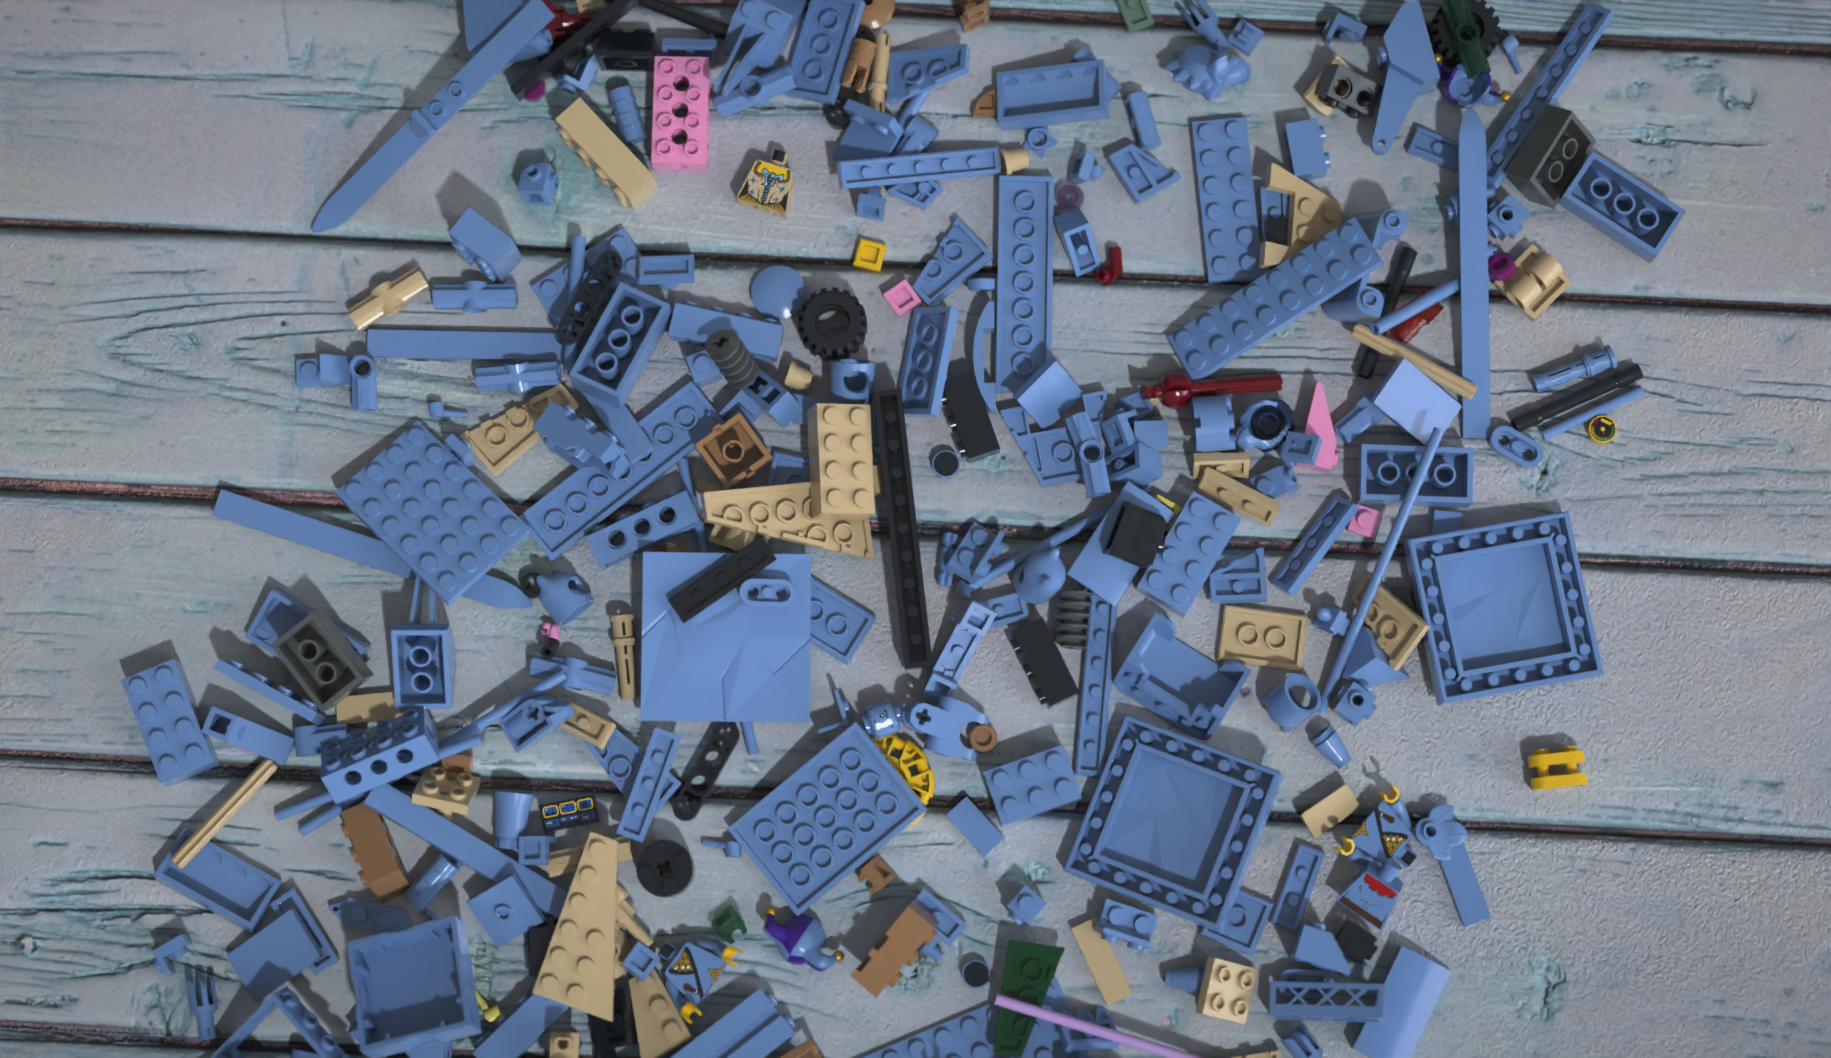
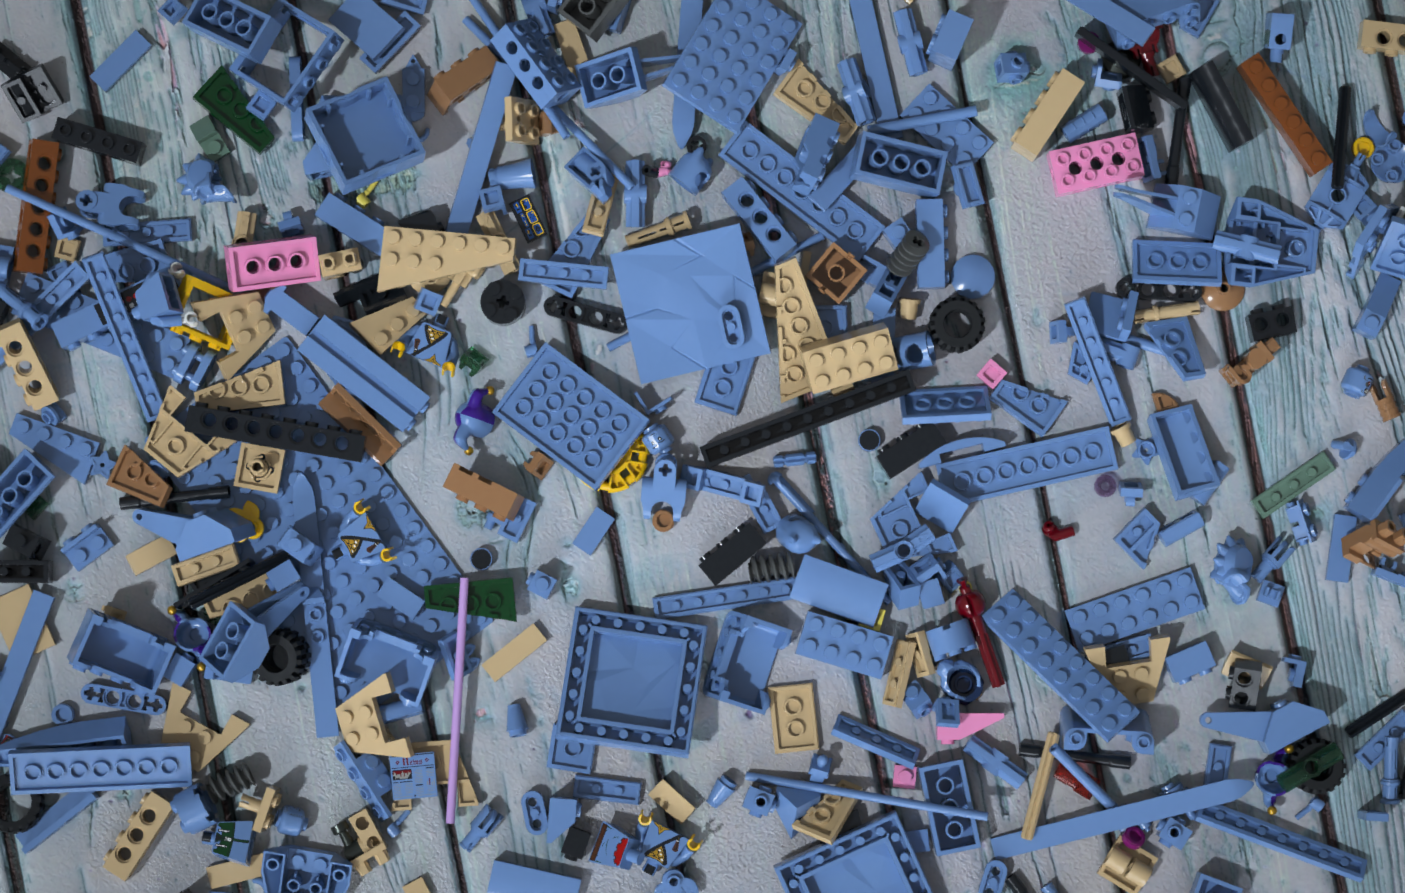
camera: 70 degrees right, 5 degrees up
(431, 881) = (450, 127): medium blue axle -> none
(437, 411) = (813, 37): medium blue hand -> none
(505, 910) = (442, 189): medium blue plate -> none
(590, 299) = (928, 133): black beam -> none
(722, 579) = (732, 289): black tile -> none
(769, 85) = (1136, 228): medium blue piece -> none
(769, 186) = (1055, 248): torso -> none
(859, 60) = (1173, 294): medium nougat hinge -> none
(870, 255) = (1020, 340): yellow tile -> none
(975, 552) = (804, 479): medium blue bracket -> none
(981, 284) = (1017, 432): medium blue tile -> none
(1032, 785) = (634, 567): medium blue brick -> none
(1078, 241) = (1071, 500): medium blue slope -> none
(1125, 923) = (546, 664): medium blue bracket -> none
(1136, 535) = (846, 600): black torso -> none
(1226, 990) = (514, 753): tan plate -> none
(1240, 581) = (833, 690): medium blue wing -> none
(1284, 706) = (743, 748): medium blue piece -> none
(1332, 1012) = (515, 834): medium blue fence -> none
(1414, 402) = (1007, 794): medium blue tile -> none
(1550, 156) = (1231, 856): dark grey brick -> none

